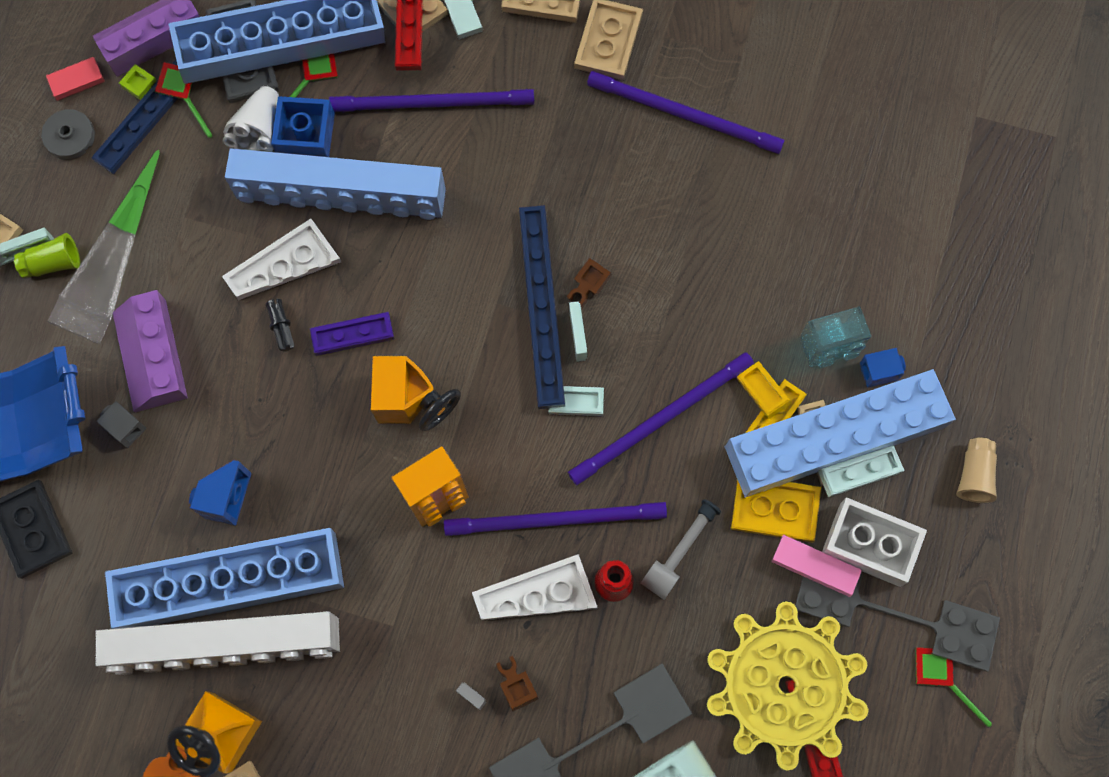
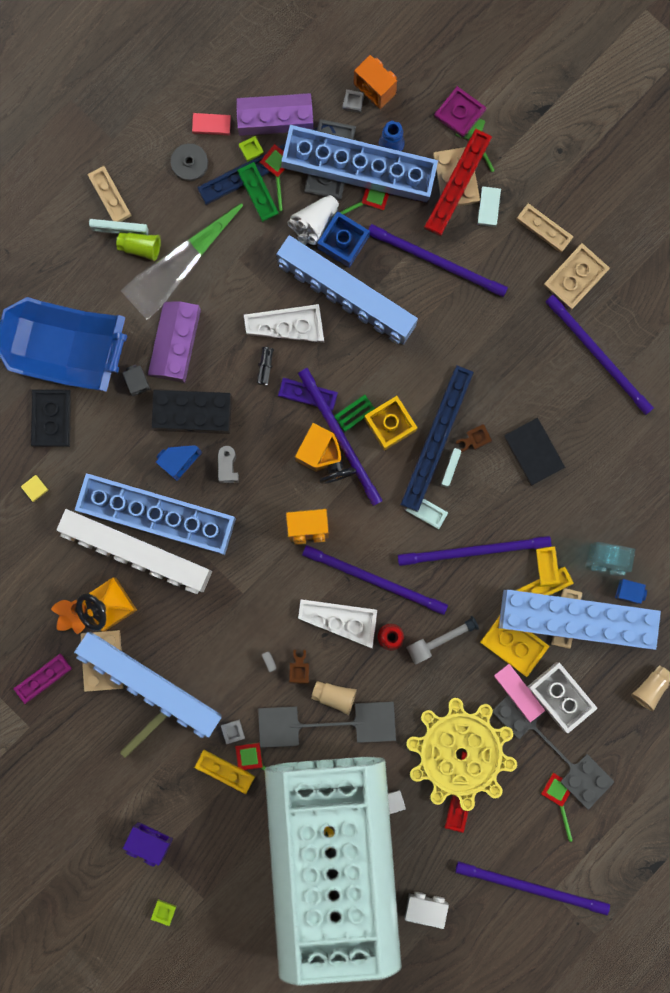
camera: 25 degrees right, 10 degrees up
(47, 630) = (34, 488): none -> light yellow tile
(170, 126) = (258, 192): none -> green tile
(211, 426) = (191, 411): none -> black brick
(286, 465) = (225, 465): none -> light grey leg
(348, 317) = (369, 488): none -> dark purple piece
(415, 320) = (350, 407): none -> green tile
(473, 313) = (390, 423): none -> yellow brick
(581, 697) = (334, 696): none -> tan plant
(670, 262) = (534, 451): none -> black tile
(860, 471) = (580, 649): light aqua tile -> none

